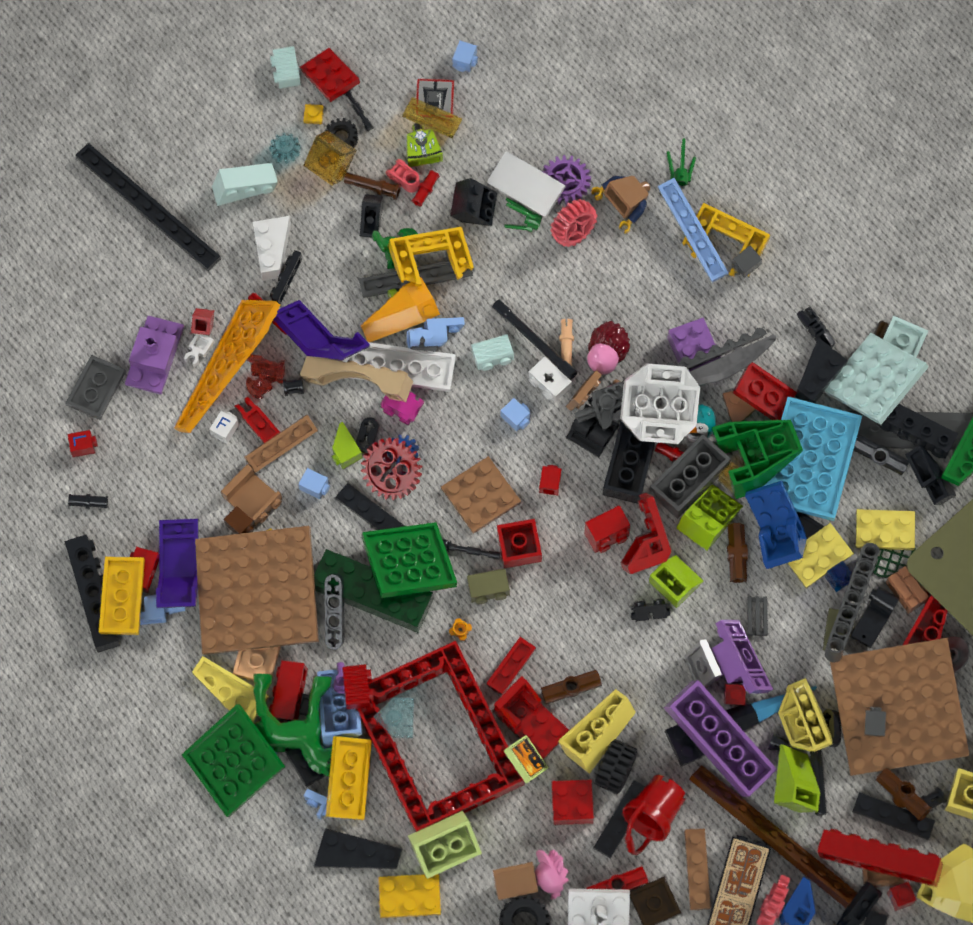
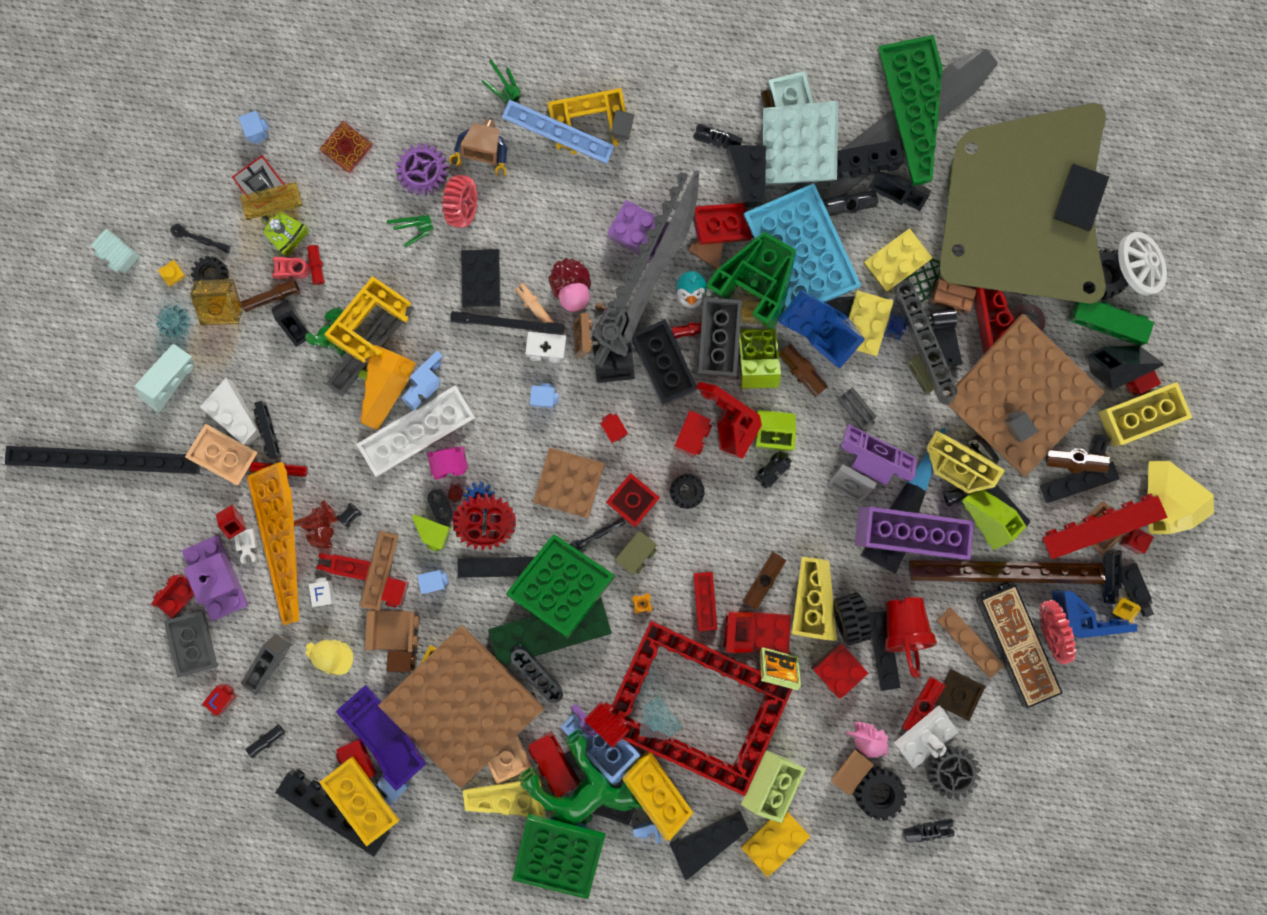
camera: 45 degrees left, 15 degrees up
(114, 343) = (174, 595): none -> red bracket
(138, 444) = (265, 663): none -> dark grey slope
(189, 477) = (330, 656): none -> light yellow hair
(237, 269) = (221, 454): none -> light nougat plate
(279, 469) = (394, 592): none -> red brick
(313, 336) = (332, 462): dark purple windscreen -> none
(323, 371) = (362, 485): tan arch -> none
(330, 74) = (156, 229): red plate -> none
(387, 432) = (455, 492): none -> clear red plate
(473, 203) = (364, 247): black slope -> none
(492, 352) = (483, 359): light aqua brick -> none
(521, 122) = (346, 147): none -> clear red plate
(526, 184) = (394, 198): white slope -> none
(542, 292) = (480, 278): none -> black plate
(567, 561) = (675, 491): none -> black tyre
(679, 406) = (673, 306): white piece -> none
(734, 694) = (894, 487): red brick -> none

